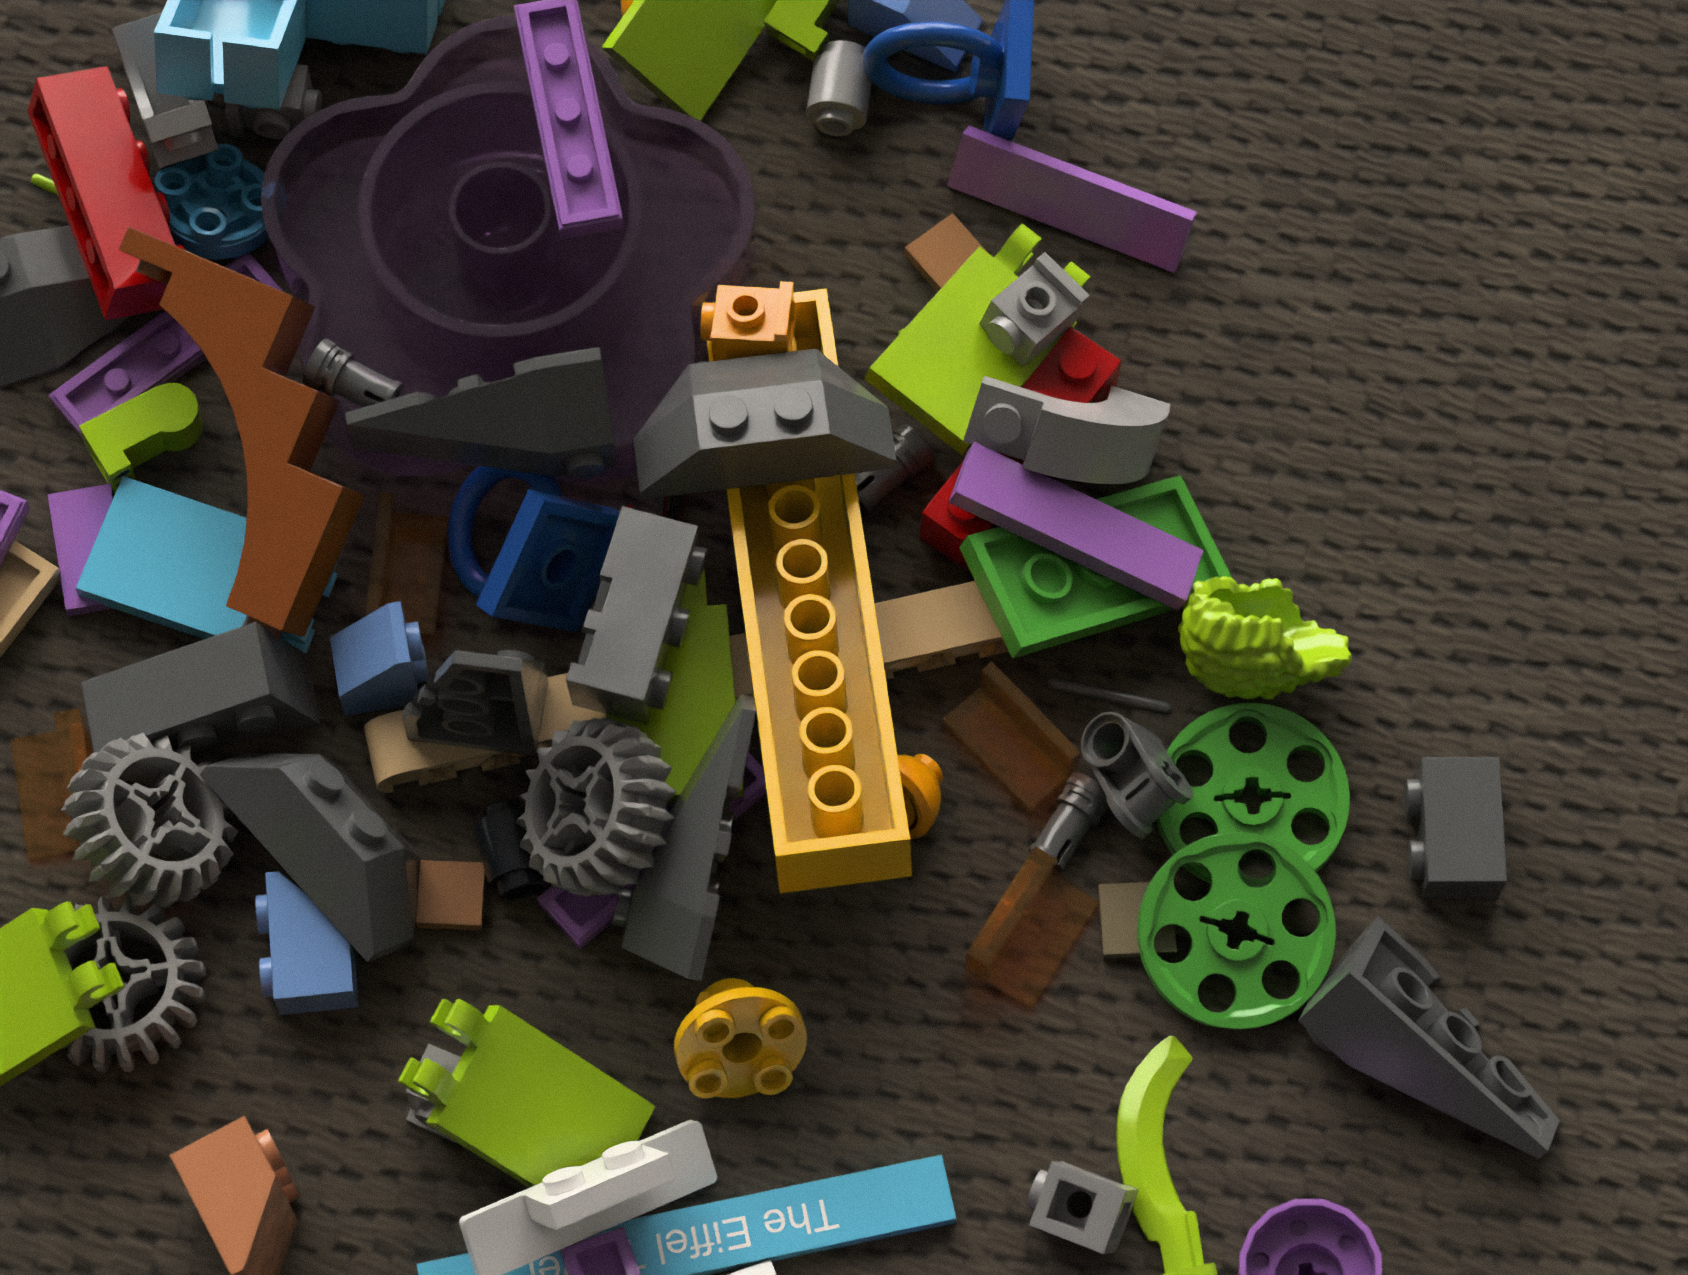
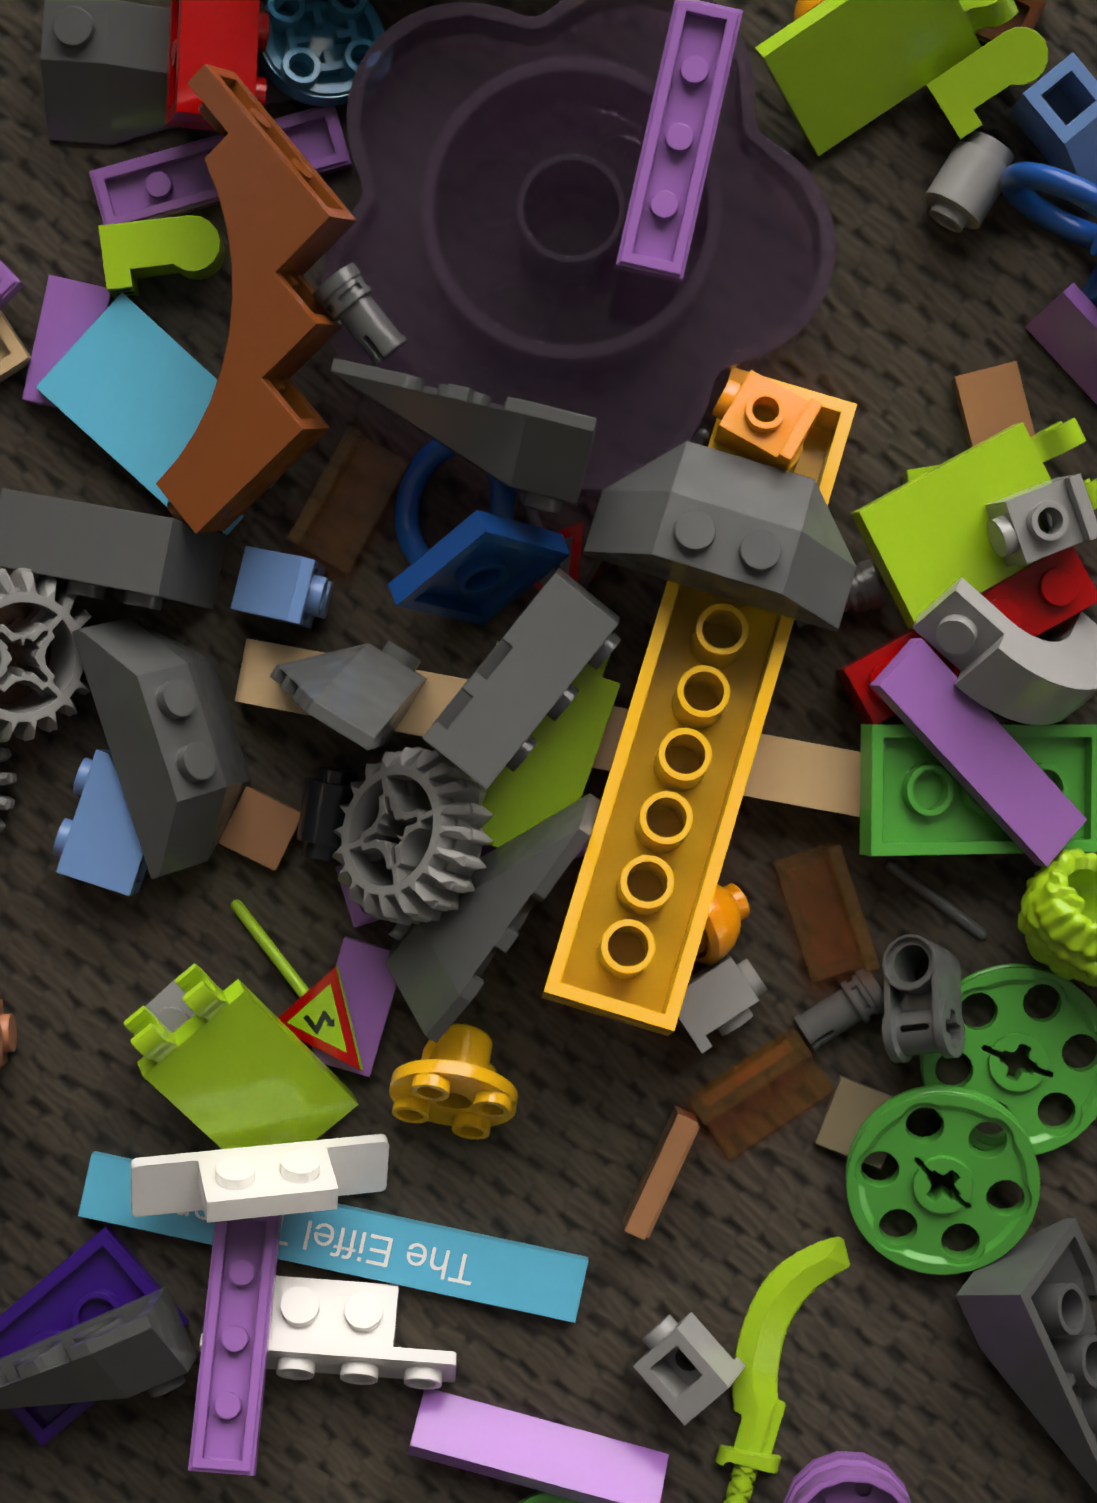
camera: 25 degrees right, 20 degrees up
(580, 1028) = (322, 1012): none -> piece
(614, 1015) = (369, 997): none -> medium lavender tile
(947, 859) = (720, 999): none -> light grey brick
(971, 1038) = (661, 1173): none -> medium nougat tile

